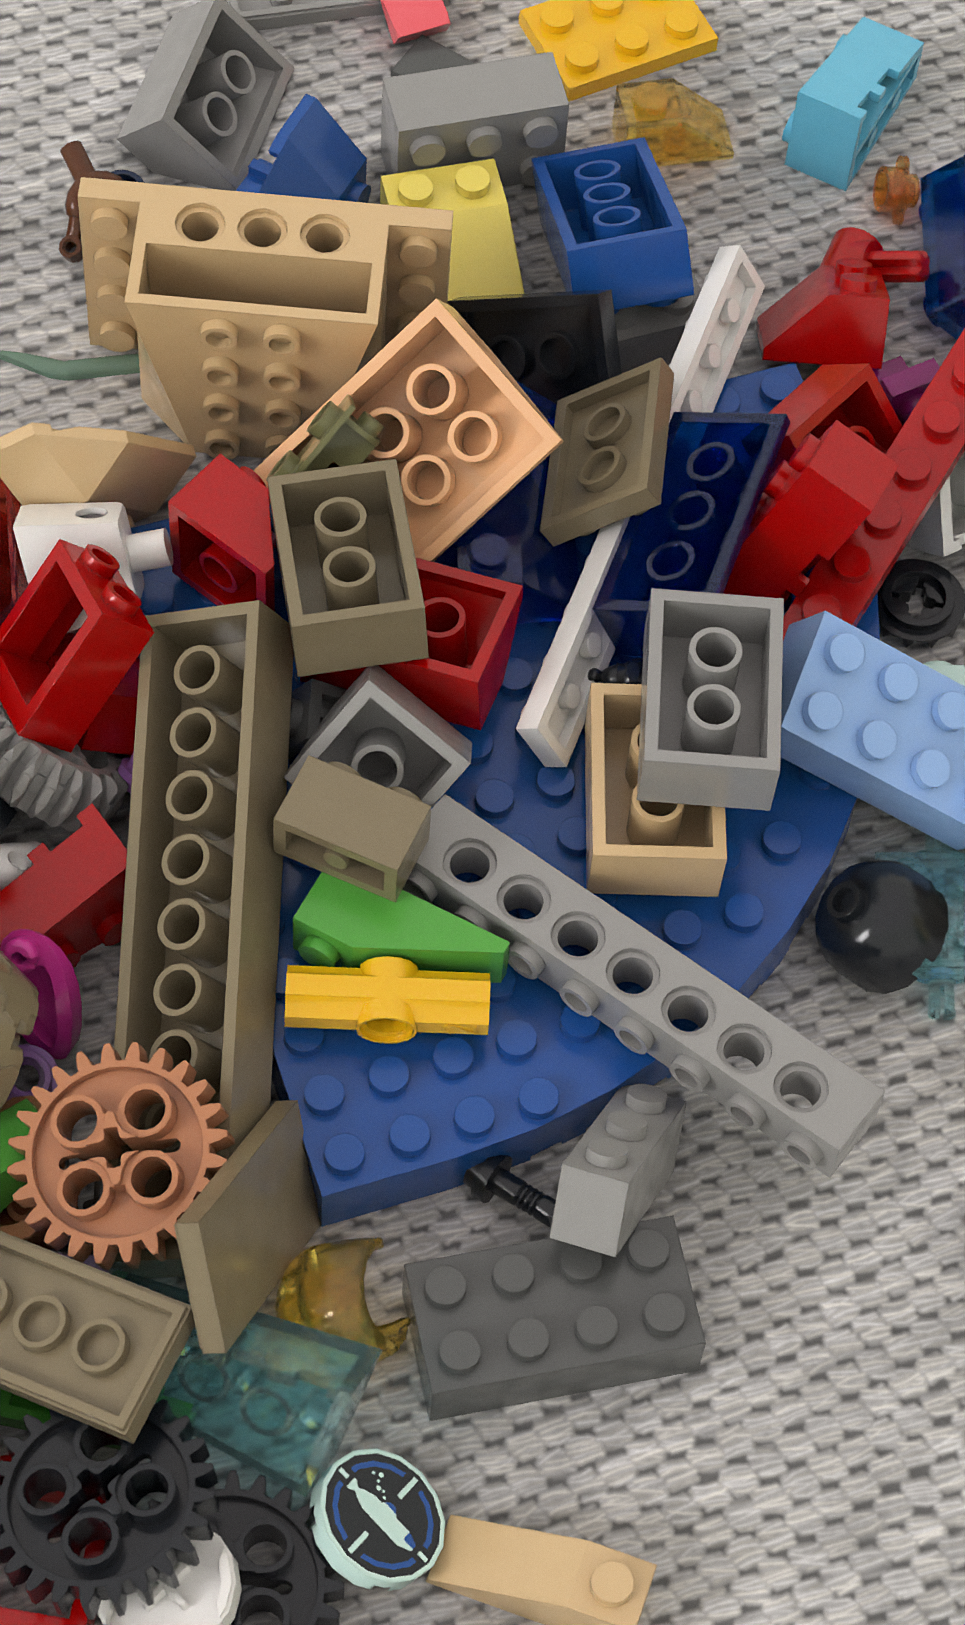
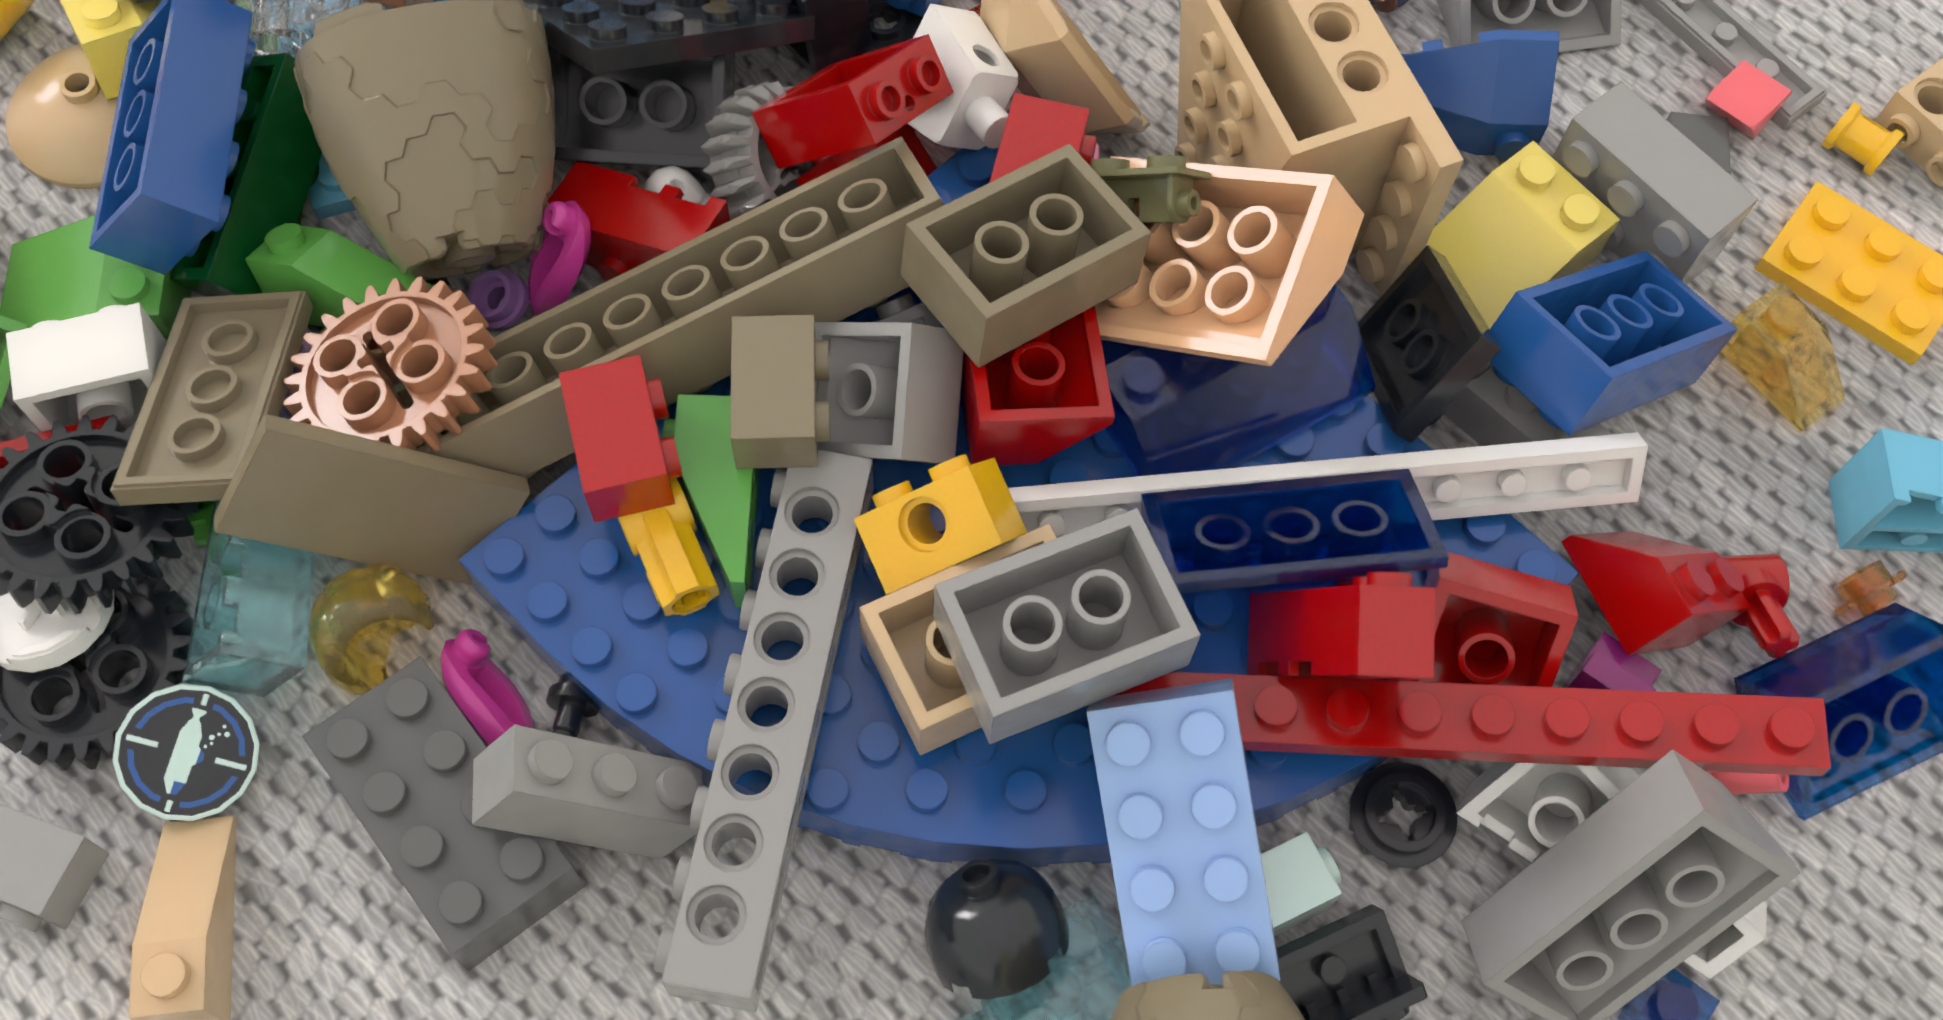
camera: 65 degrees right, 5 degrees up
(324, 973) = (617, 438): none -> brick
(413, 1244) = (480, 687): none -> dark pink arm
(554, 801) = (976, 515): none -> yellow brick
(609, 452) = (1327, 434): dark tan plate -> none

